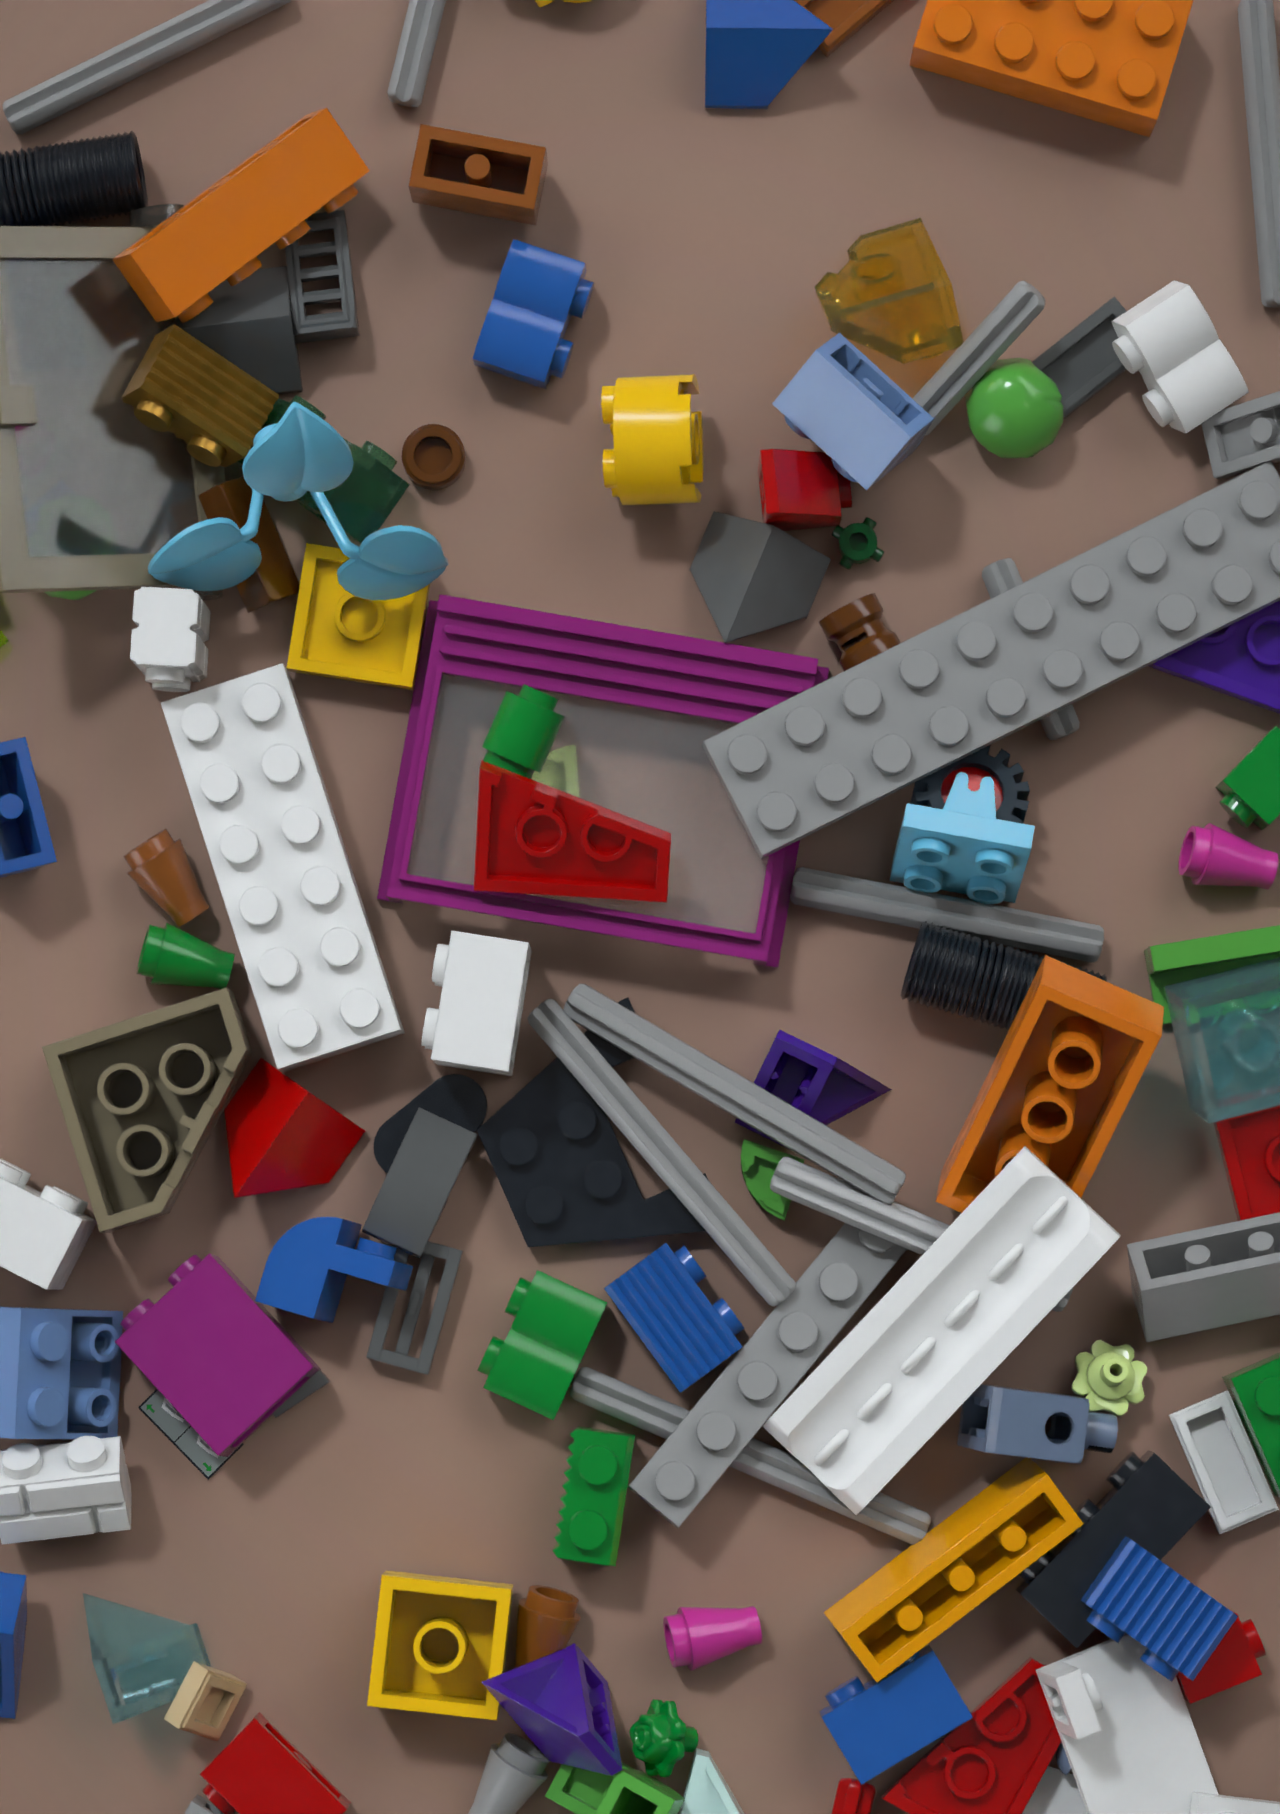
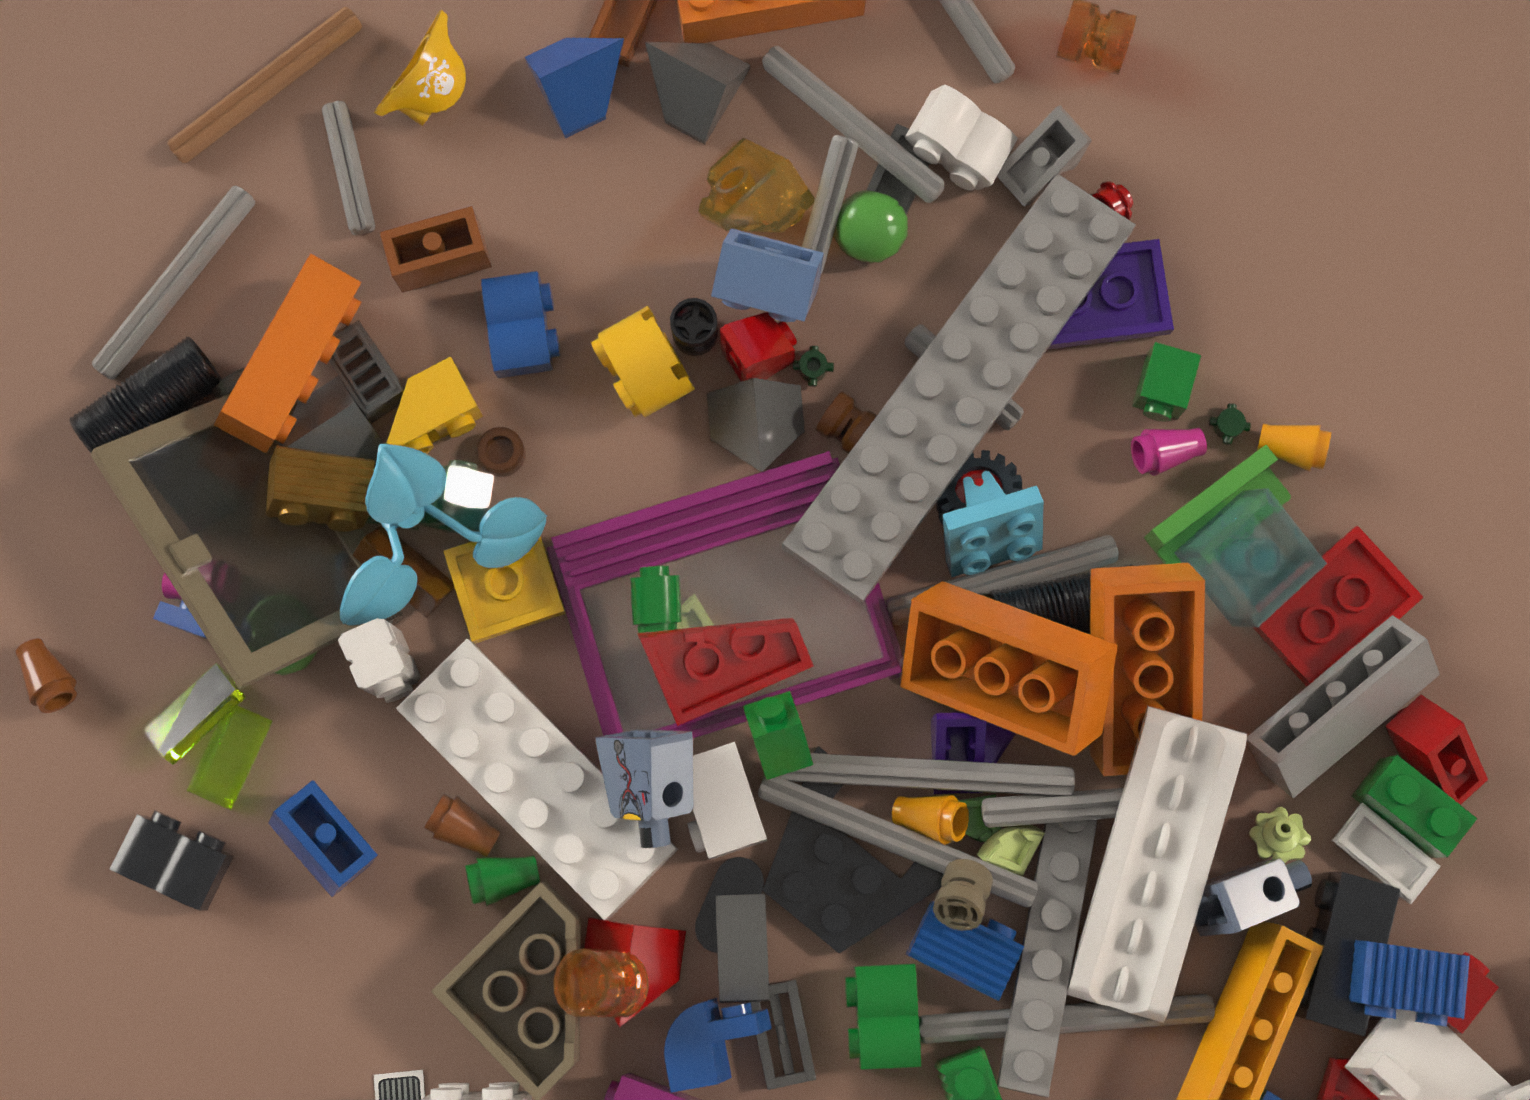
camera: 30 degrees left, 5 degrees down
(238, 1137) = (600, 983): none -> clear orange wheel
(377, 364) = (433, 407): none -> yellow slope
(408, 934) = (648, 779): none -> sand blue torso
(584, 960) = (778, 735): none -> green brick
(694, 1259) = (963, 894): none -> dark tan wheel
(718, 1148) = (932, 816): none -> light orange cone
(744, 414) = (694, 316): none -> black wheel
(790, 1230) = (1012, 847): none -> yellowish green tile
(887, 1018) = (1008, 667): none -> orange brick
(895, 122) = (694, 84): none -> dark grey slope
(1059, 271) = (853, 124): none -> light grey axle

